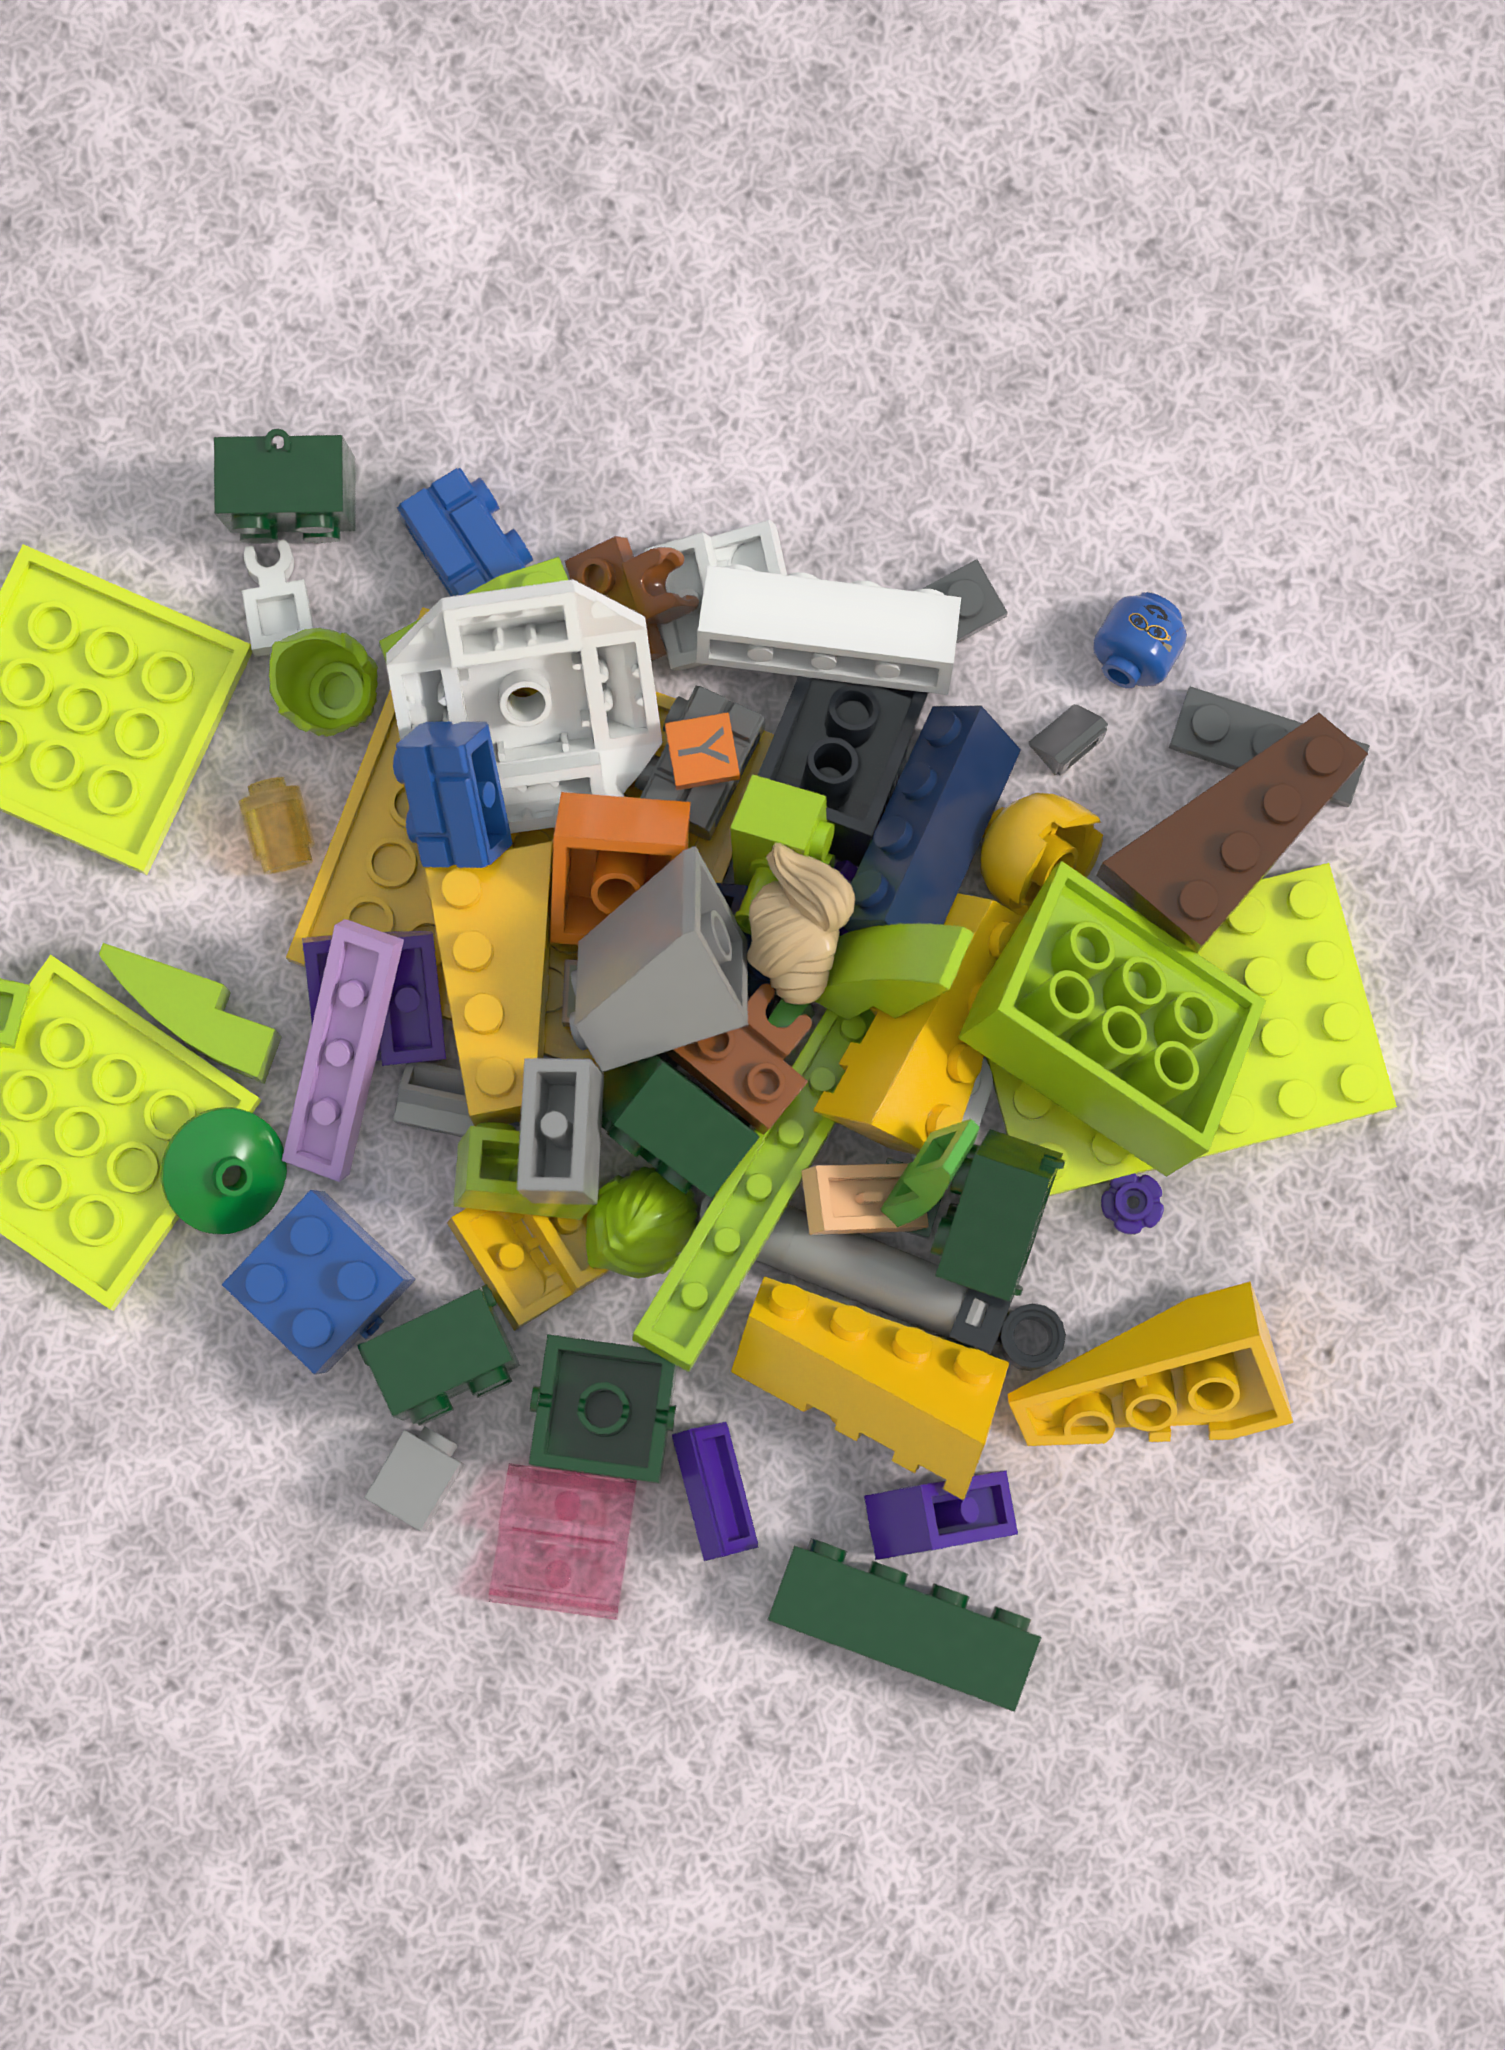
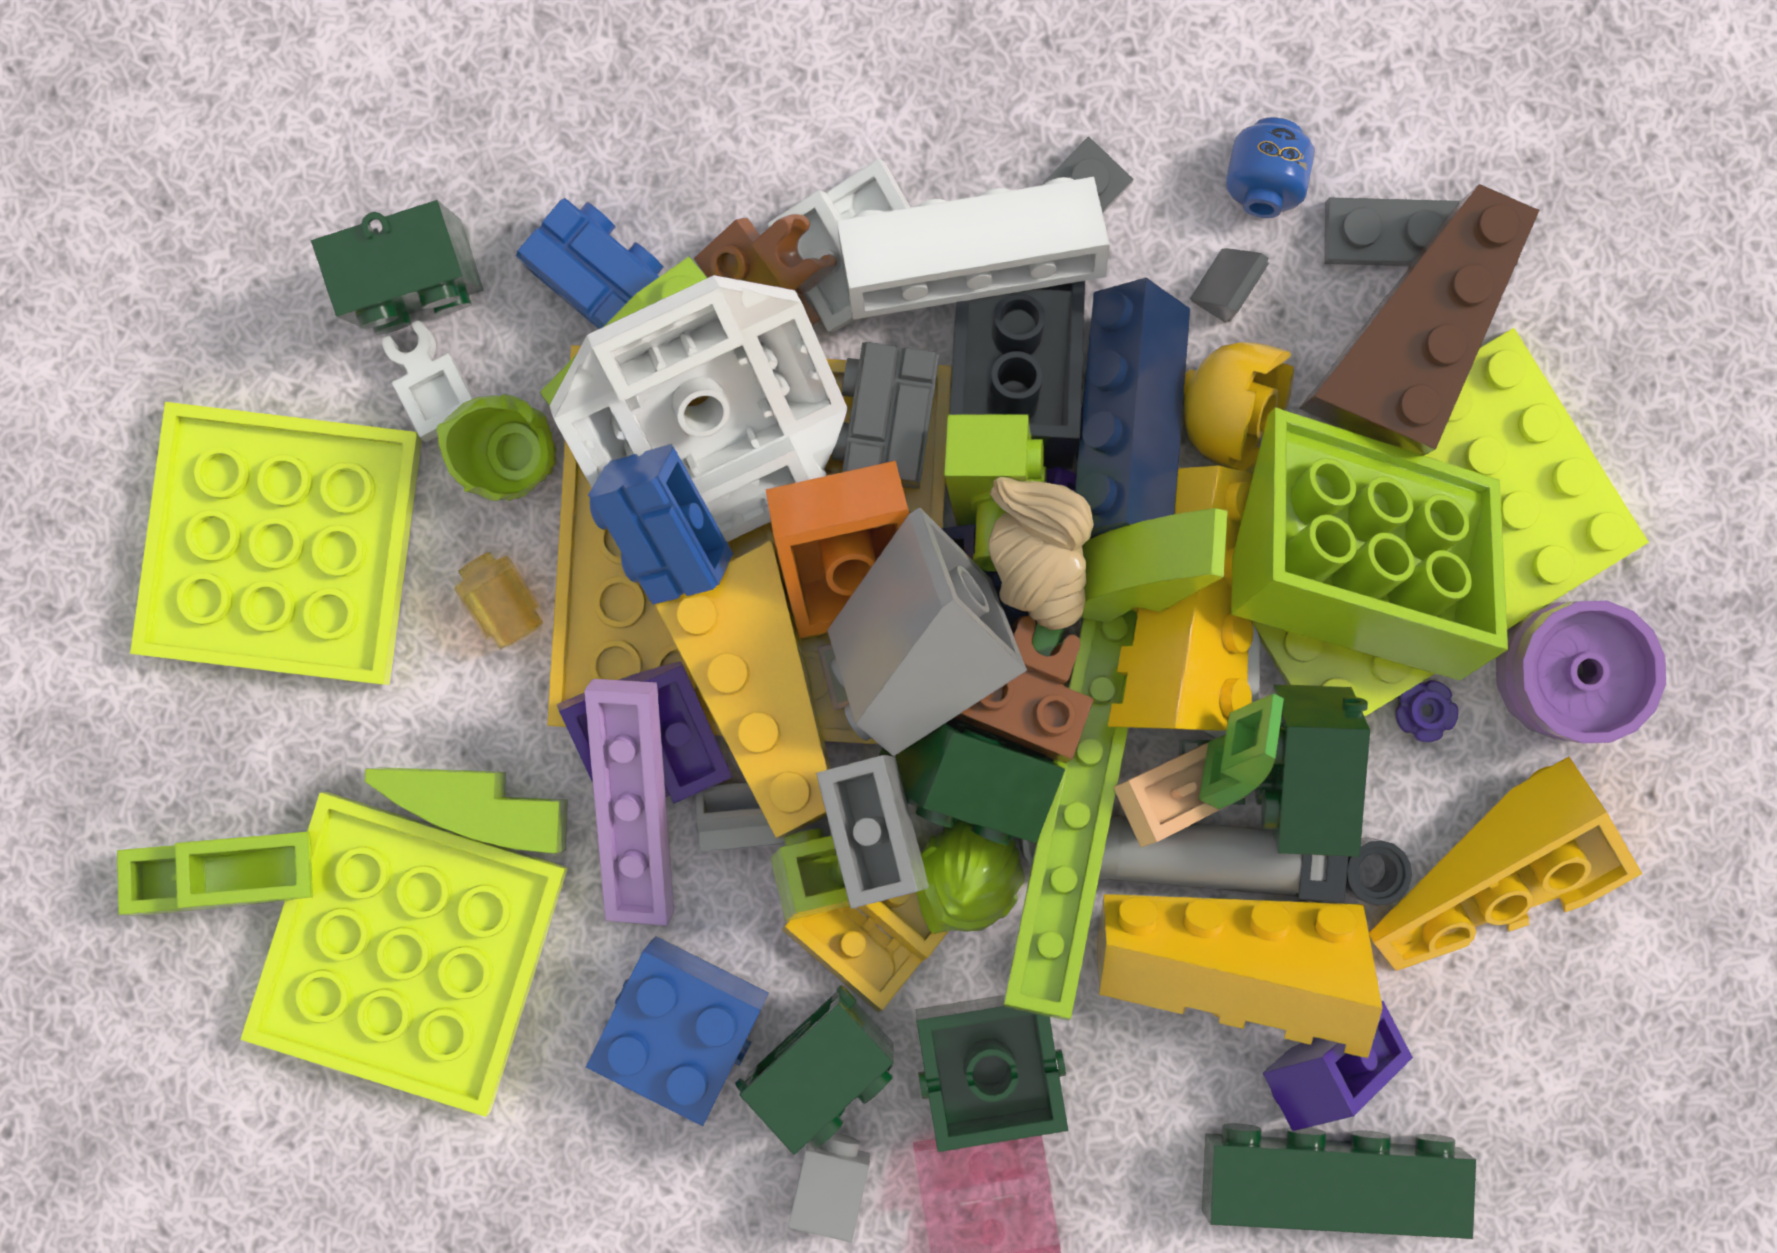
camera: 15 degrees left, 5 degrees up
(201, 1154) = (533, 932): green dish -> none
(702, 751) = (890, 406): orange tile -> none
(715, 1491) = (1118, 1110): dark purple tile -> none
(1248, 1212) = (1619, 677): none -> medium lavender wheel

